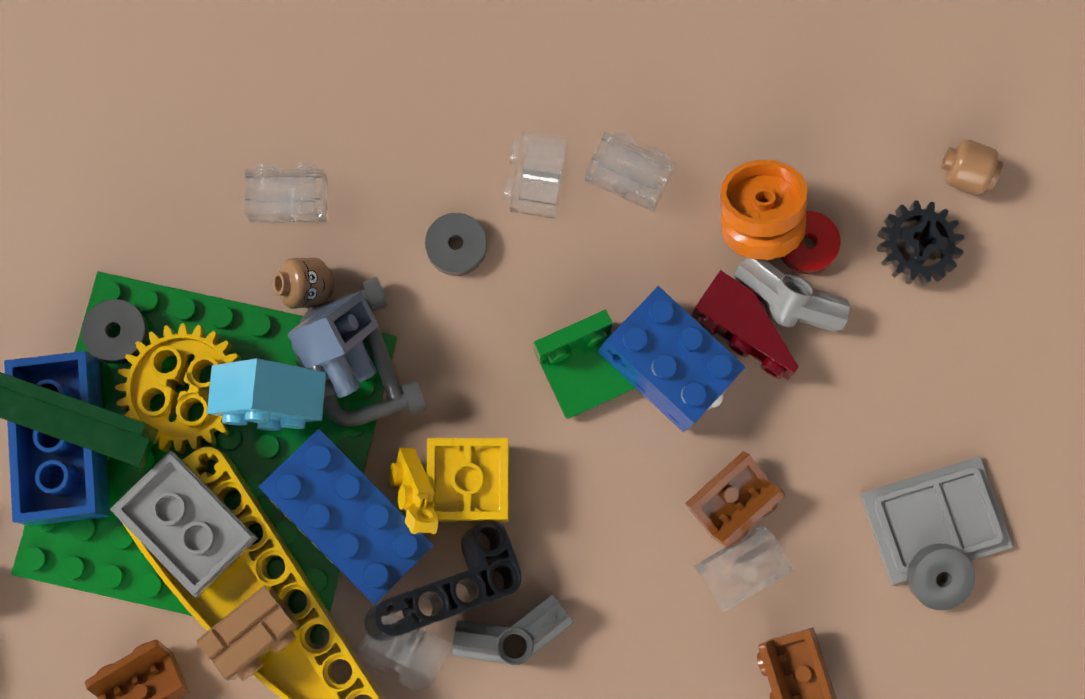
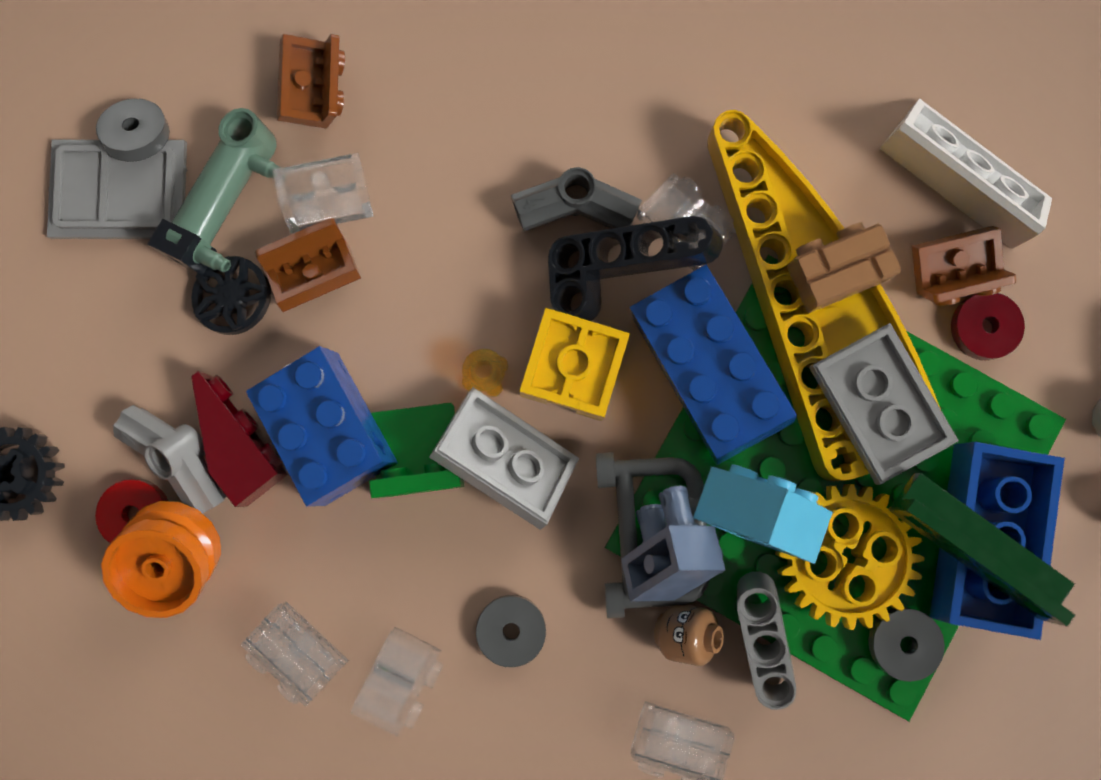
camera: 165 degrees left, 5 degrees up
(82, 635) = (1006, 323): none -> dark red piece
(239, 312) = (769, 659): none -> light grey beam
(413, 492) = (634, 364): yellow hinge -> none
(503, 380) = (505, 458): none -> light grey tile
(557, 463) = (491, 383): none -> clear yellow brick
(796, 454) = (231, 297): none -> black wheel
(842, 539) = (243, 148): none -> sand green piece

